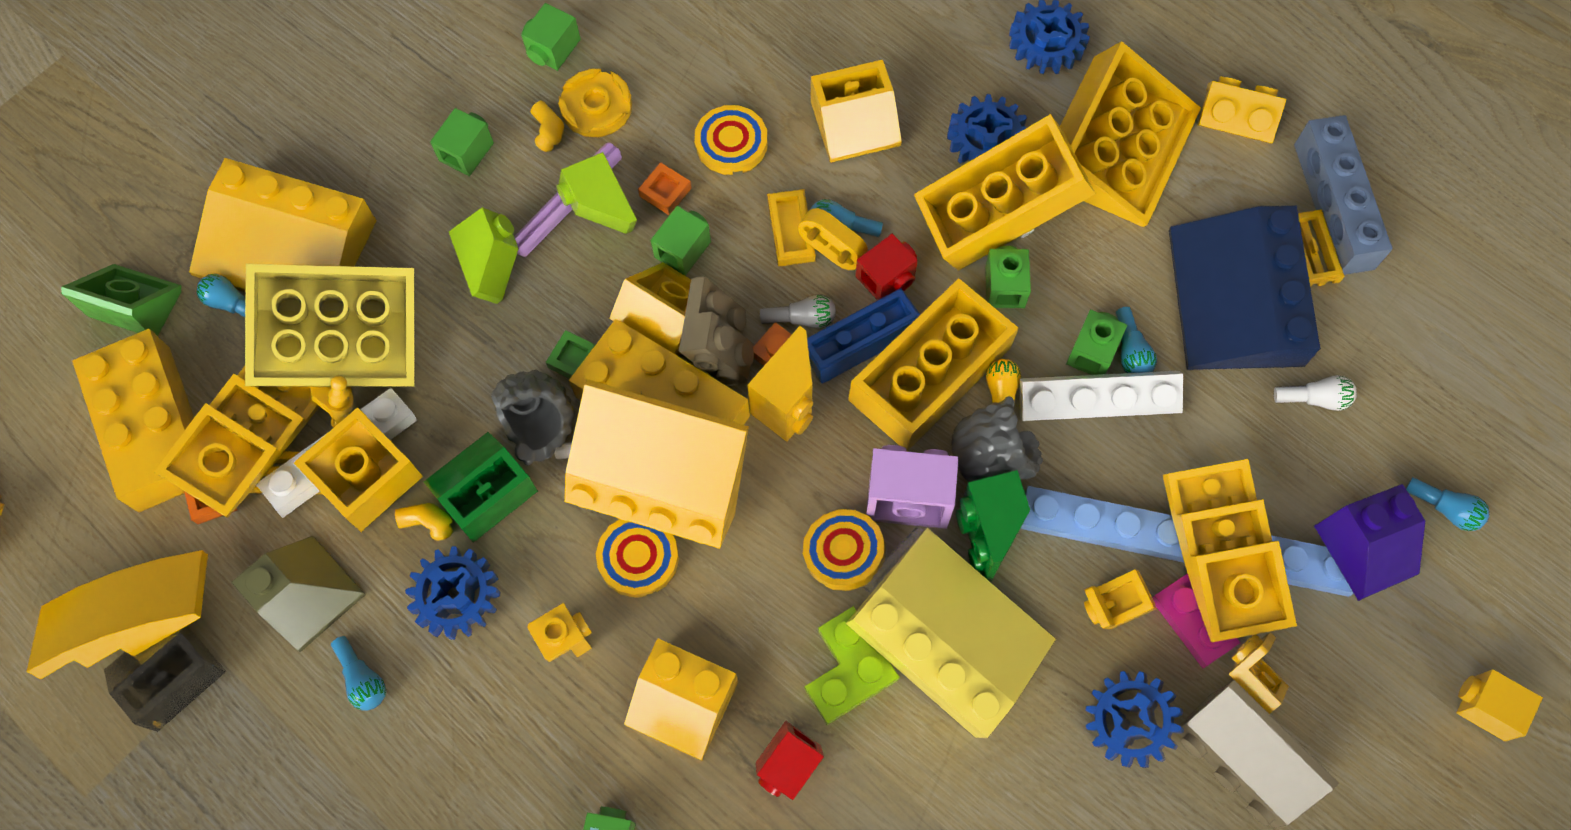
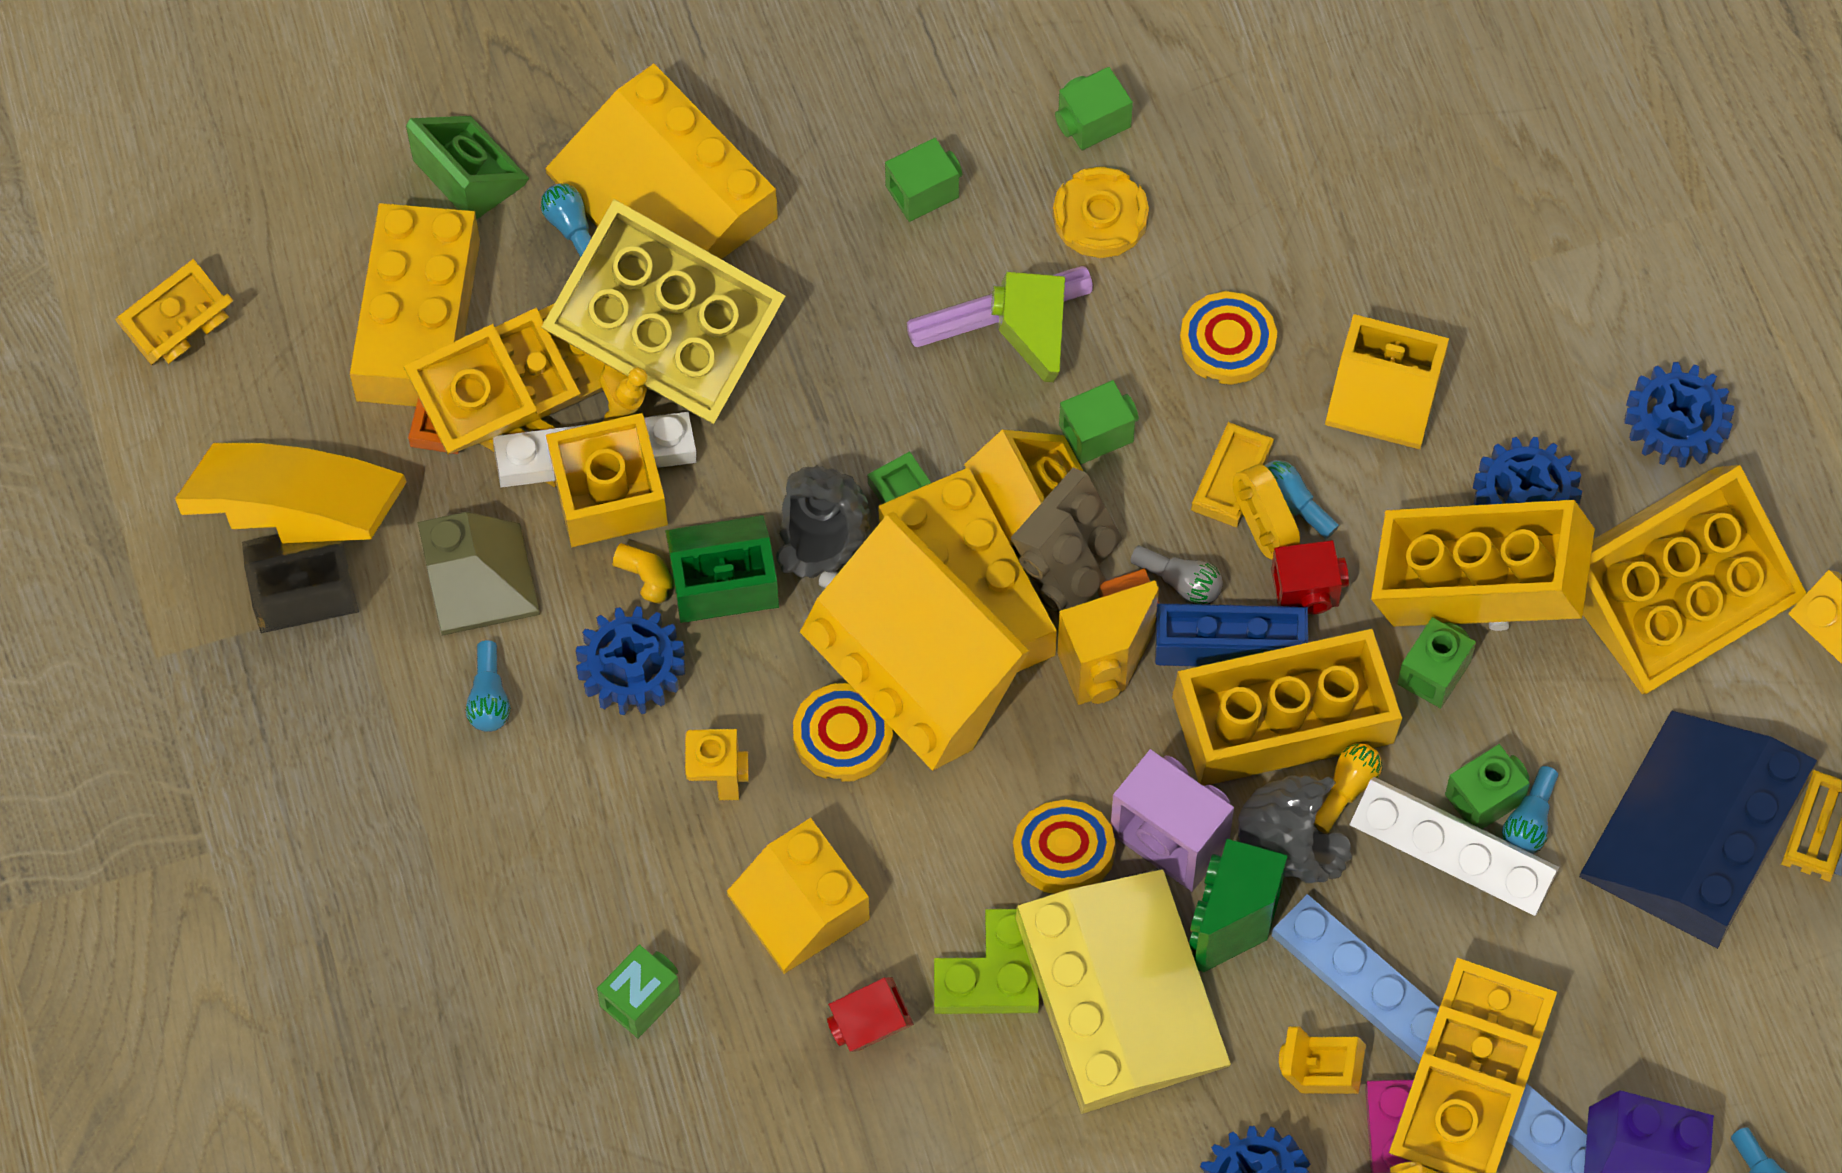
camera: 30 degrees right, 5 degrees down
(485, 253) = (873, 320): lime slope -> none
(550, 128) = (1031, 215): yellow arm -> none
(664, 188) = (1116, 353): orange plate -> none
(1330, 393) = (1719, 988): white piece -> none

